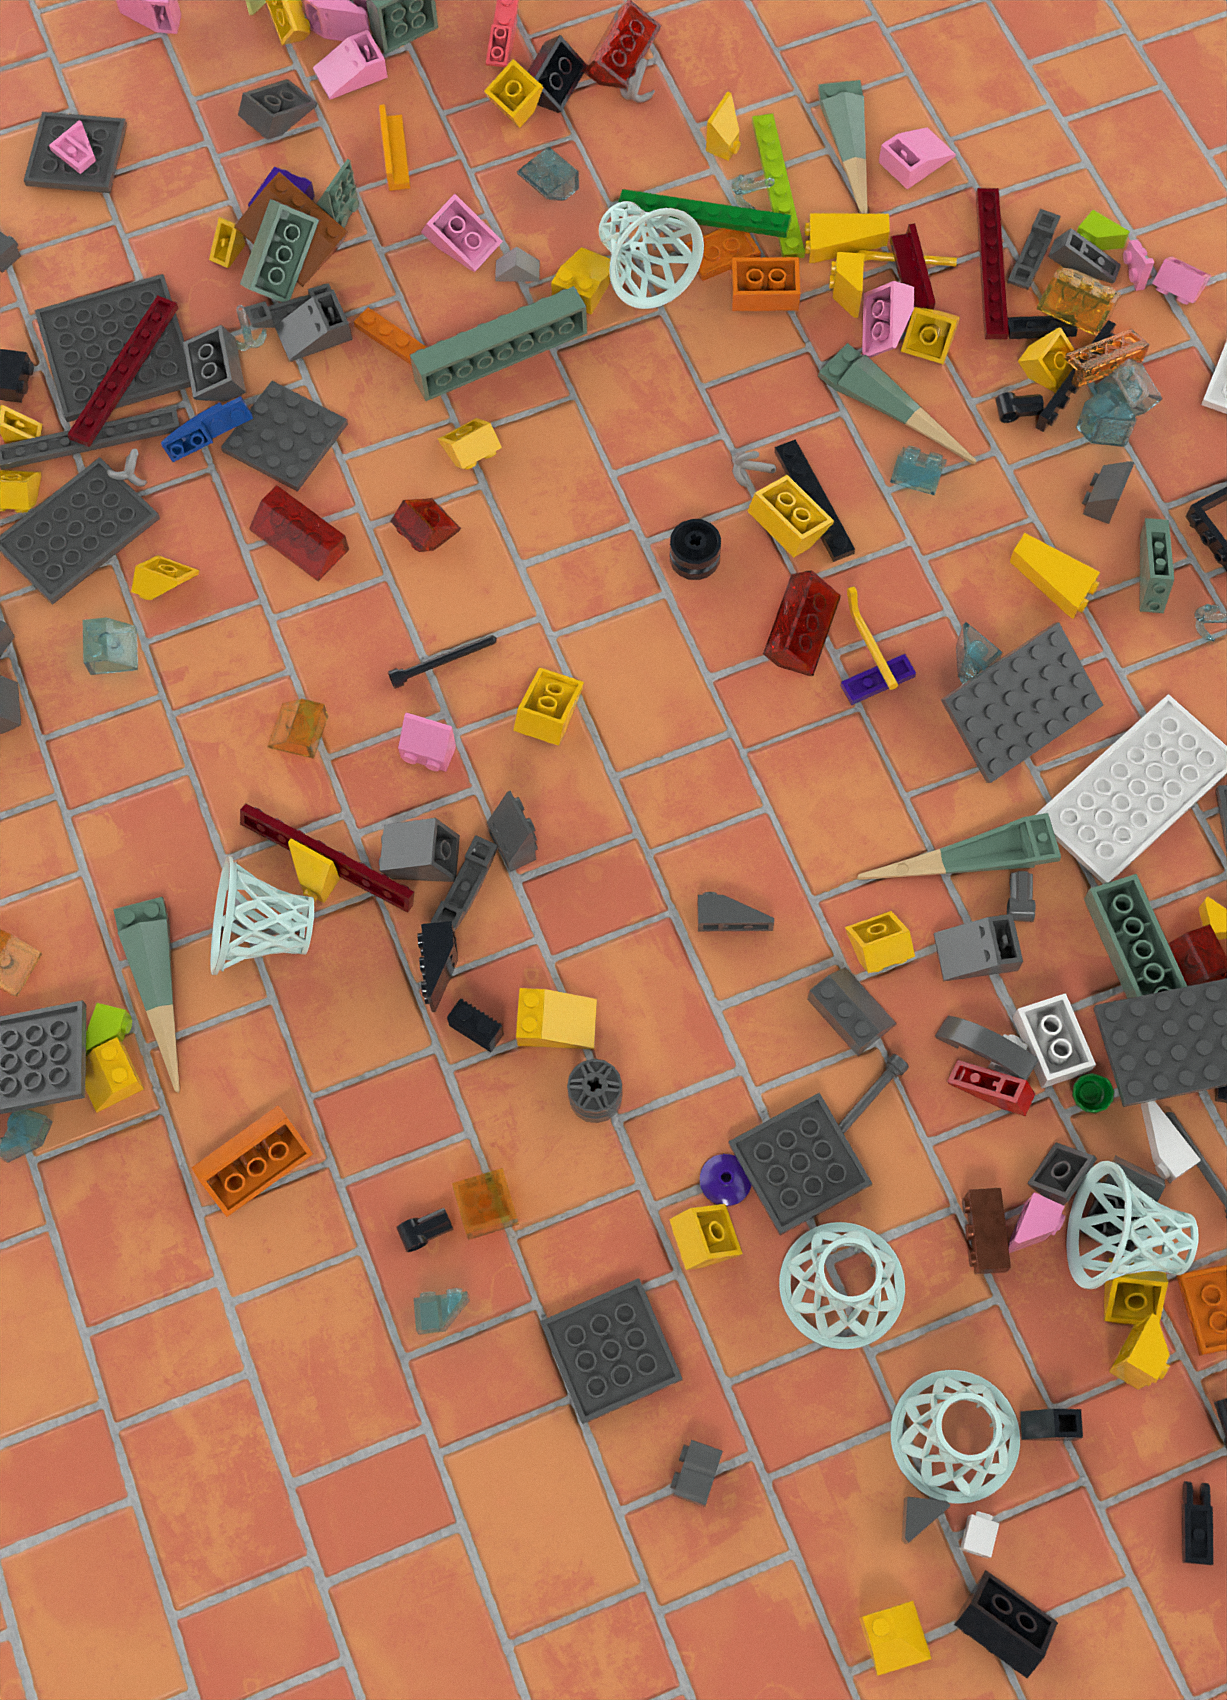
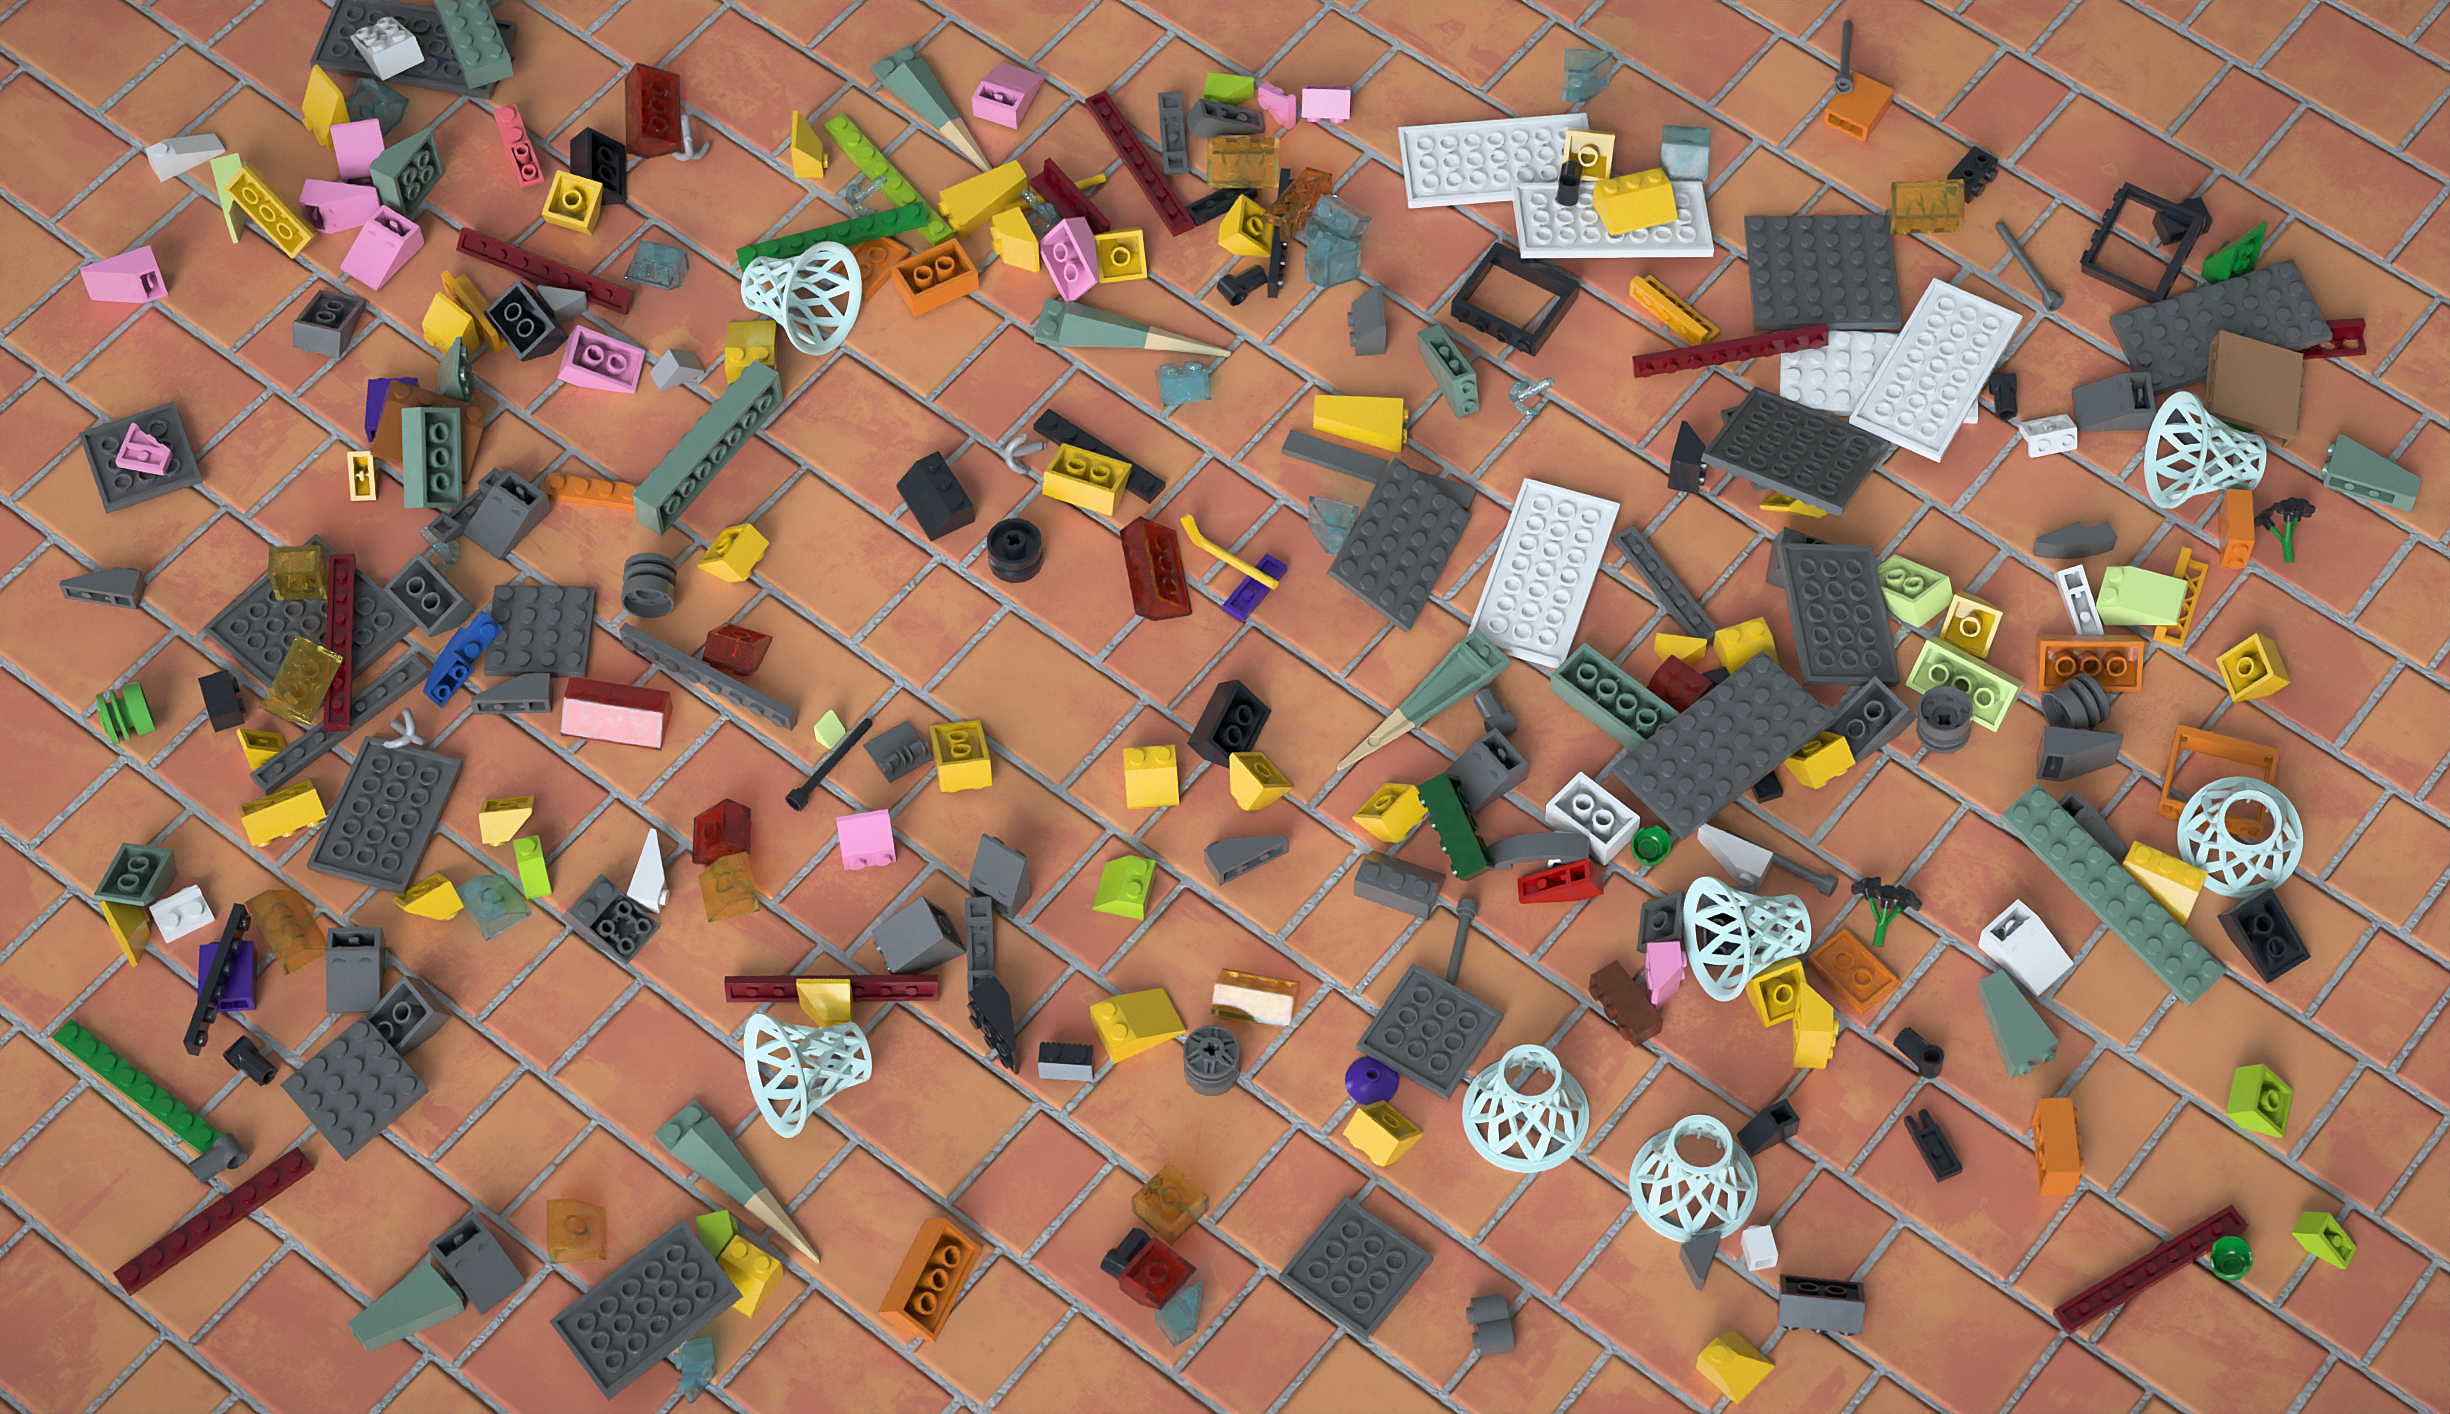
camera: 30 degrees left, 10 degrees down
(63, 618) = (431, 898): none -> yellow slope
(70, 388) = (301, 681): none -> clear yellow slope
(121, 296) = (298, 572): none -> clear yellow brick
(157, 630) = (532, 867): none -> lime slope
(190, 708) = (610, 920): none -> dark grey slope
(233, 480) = (519, 695): none -> dark grey slope
(239, 690) = (648, 884): none -> white slope
(320, 677) = (721, 832): none -> clear red slope
(361, 152) = (446, 322): none -> yellow slope
(384, 437) = (649, 585): none -> dark grey wheel
(391, 544) = (711, 678): none -> dark grey plate
(422, 175) = (525, 323): none -> black slope
(434, 1265) = (1155, 1275): none -> clear red slope
(457, 630) = (829, 730): none -> yellowish green slope
(461, 173) = (563, 303): none -> light grey slope
(464, 140) = (544, 270): none -> dark red plate
(501, 677) = (898, 751): none -> dark grey hinge
(617, 893) = (1126, 887): none -> lime slope
(658, 472) = (935, 497): none -> black slope
(667, 1051) = (1255, 998): none -> clear yellow slope
(693, 804) = (1151, 776): none -> yellow slope
(780, 853) = (1255, 780): none -> yellow slope
(785, 792) = (1229, 723): none -> black slope
(889, 269) = (1047, 214): none -> clear light blue piece
(927, 986) = (1456, 826): none -> dark green wedge
(1037, 618) = (1363, 465): none -> dark grey tile

